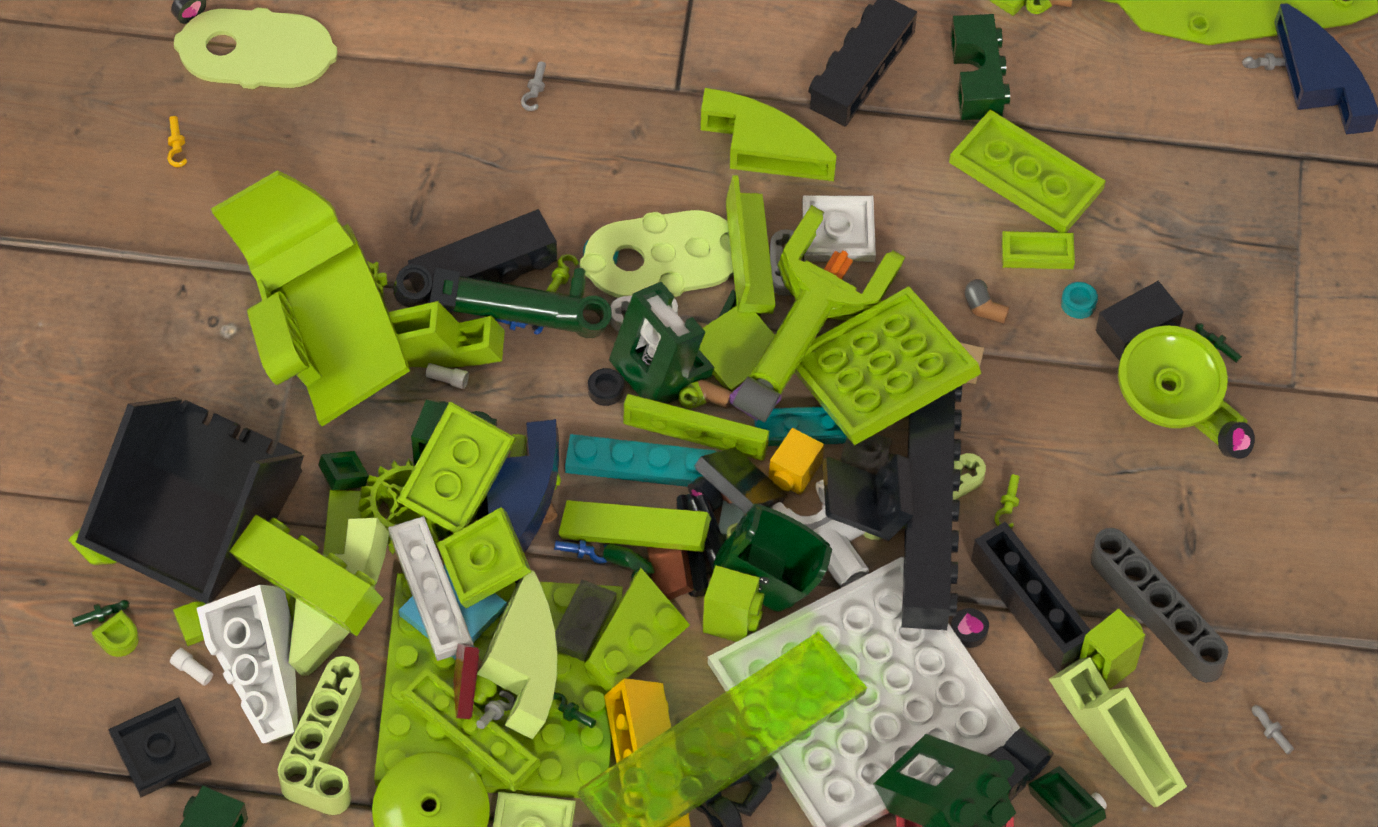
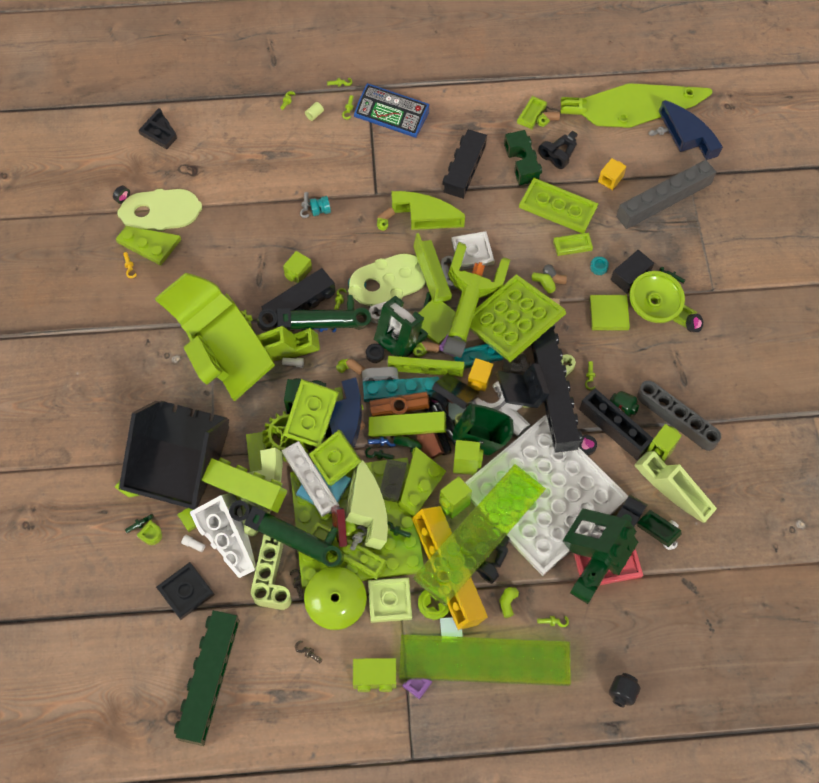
camera: 10 degrees left, 5 degrees up
(221, 107) = (148, 243): none -> lime wing
(343, 470) = (250, 422): dark green plate -> none
(367, 773) = (297, 583): none -> clear smoke hand
(368, 676) = (288, 534): none -> dark green piece
(493, 200) = (297, 267): none -> lime brick
(552, 397) = (350, 363): none -> arm
(562, 92) = (320, 206): none -> teal wheel
(572, 572) = (380, 454): none -> dark green hand
(605, 425) = (382, 373): none -> light grey beam
(606, 486) = (387, 406): none -> dark orange piece
(679, 138) = (382, 219): none -> arm
(692, 672) = (455, 497): none -> lime brick
(965, 309) = (546, 281): none -> lime arm
(1049, 78) = (558, 157): none -> black piece
(1061, 563) = (625, 402): none -> dark green head
(1076, 391) = (609, 312): none -> lime tile
(1148, 128) = (612, 174): none -> yellow brick
(1244, 186) = (666, 194): none -> dark grey brick
(1272, 729) = (749, 469): light grey hand -> none

